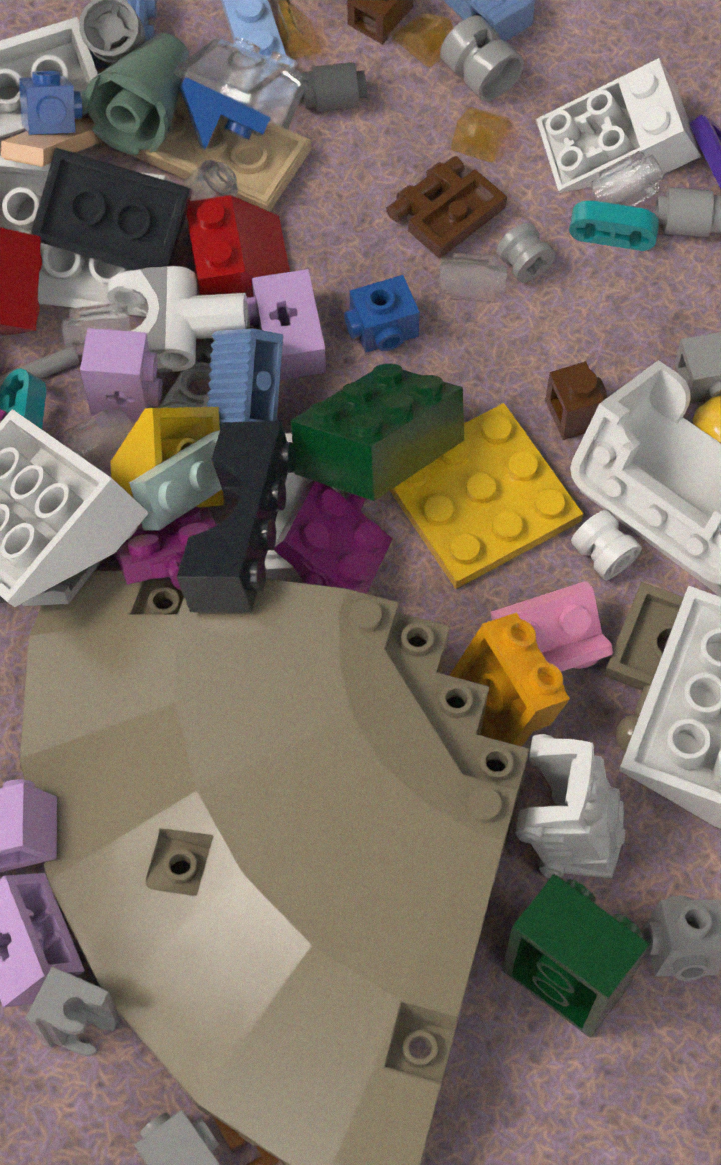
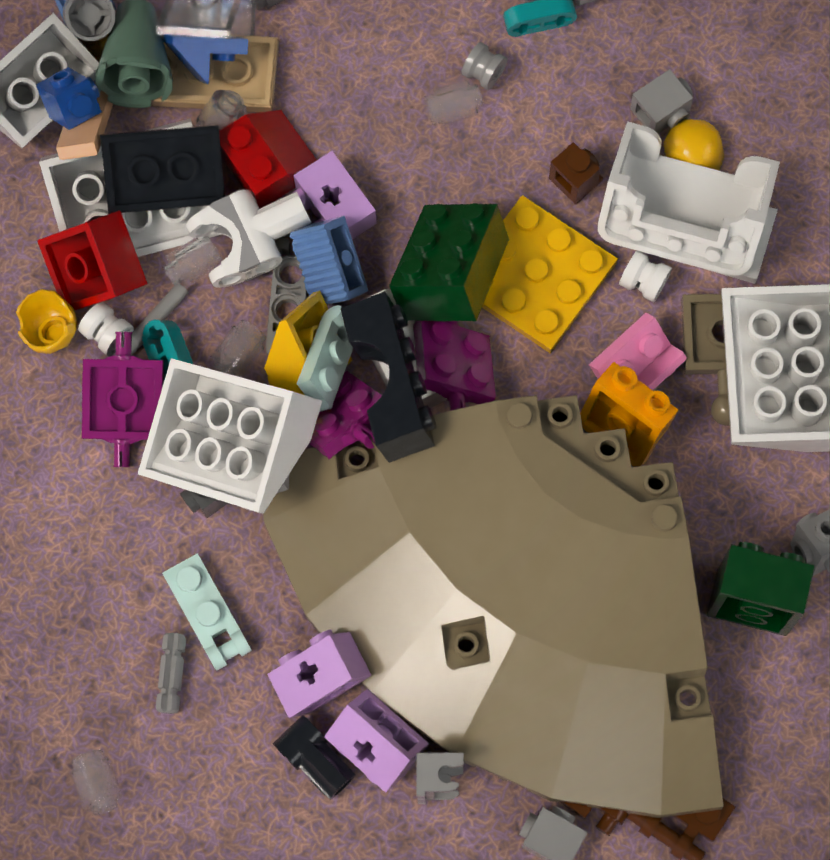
camera: 20 degrees left, 10 degrees up
(120, 372) = (235, 294): lavender brick -> none
(382, 314) = (401, 162): blue brick -> none
(455, 213) = (416, 54): reddish brown plate -> none
(588, 830) = (722, 509): white piece -> none

